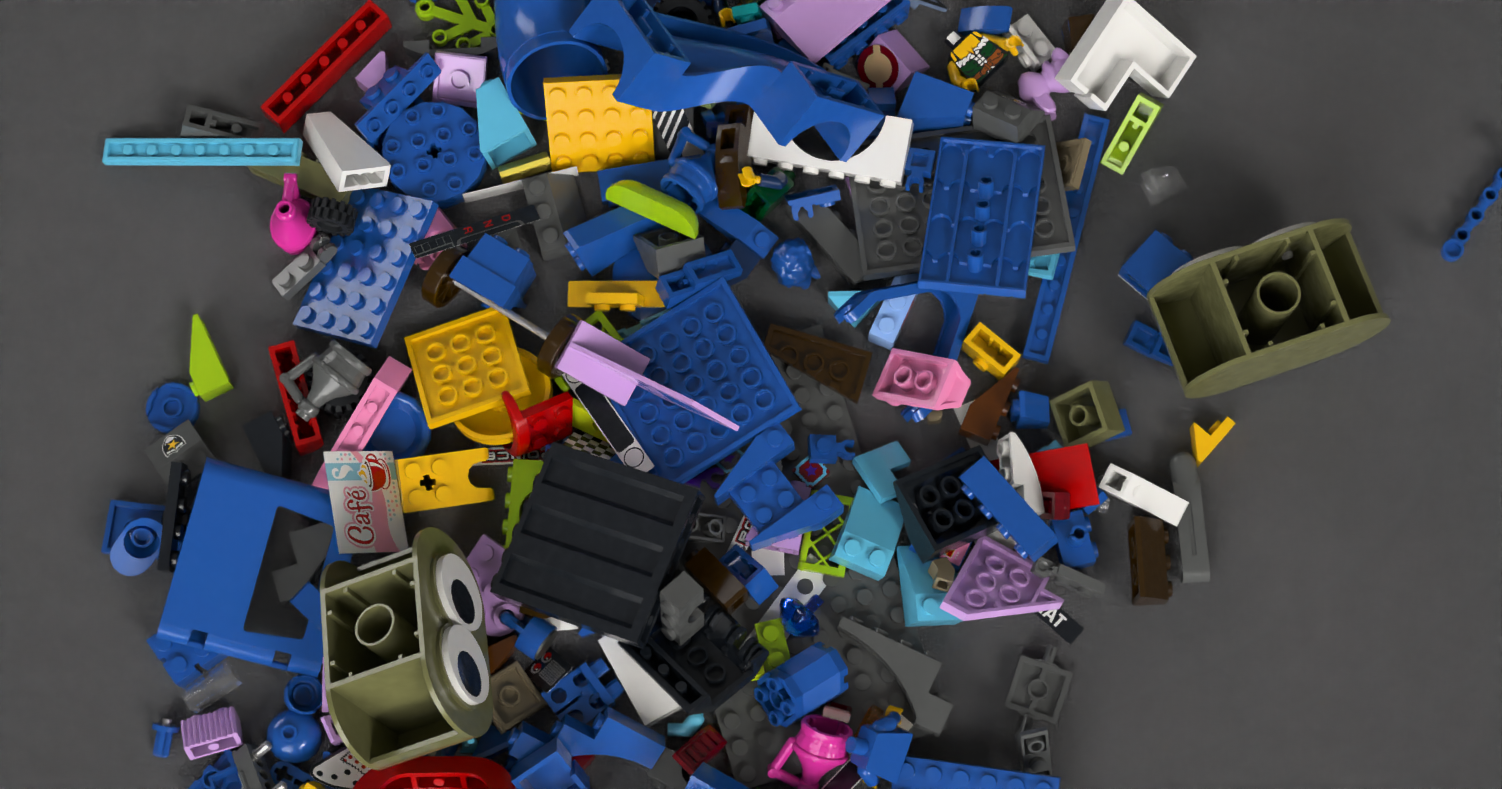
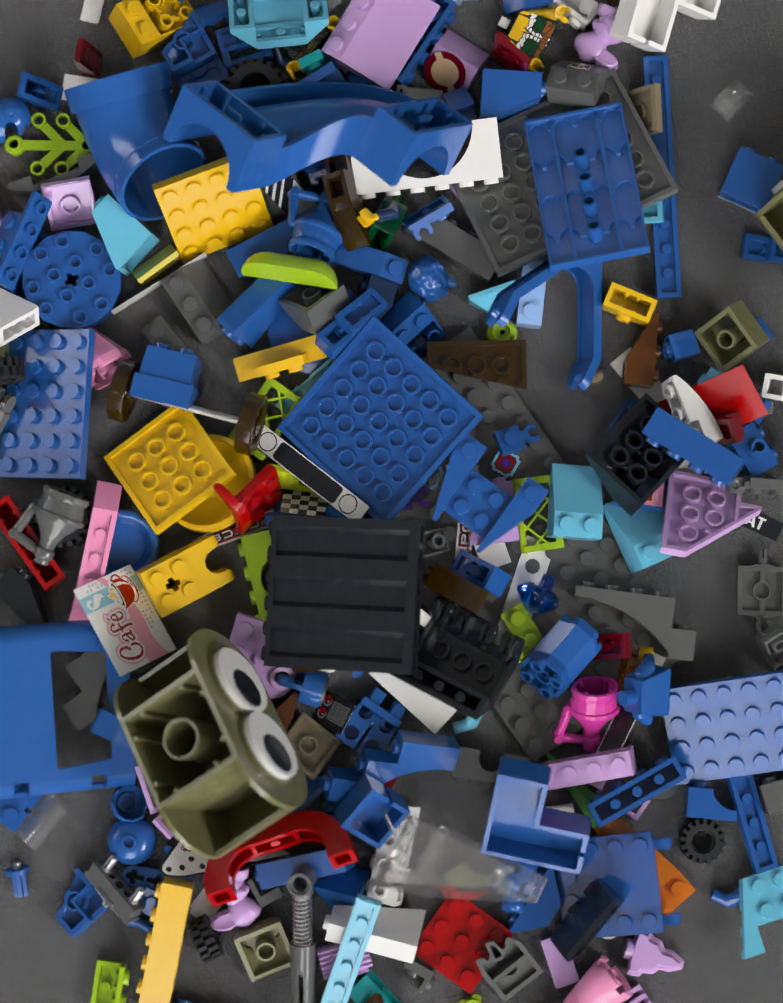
camera: 25 degrees left, 10 degrees up
(211, 732) = (59, 862): lavender brick -> none
(474, 231) = (136, 344): black sticker -> none
(617, 369) = (306, 432): lavender piece -> none
(680, 608) = (437, 627): dark grey arch -> none
(700, 748) = (489, 738): dark red slope -> none
(763, 302) = (413, 323): none -> blue slope
(837, 711) = (598, 668): tile -> none
(855, 333) = (510, 332): none -> lime plate
(861, 693) = (614, 646): none -> dark red slope
(878, 467) = (562, 443): medium azure tile -> none
(919, 165) = (512, 155): blue plate -> none
(921, 381) = (578, 352): bright pink slope -> none
(942, 574) = (650, 519): dark tan piece -> none
(945, 65) = (508, 55): none -> dark red window
(1131, 133) = (691, 61): lime slope -> none

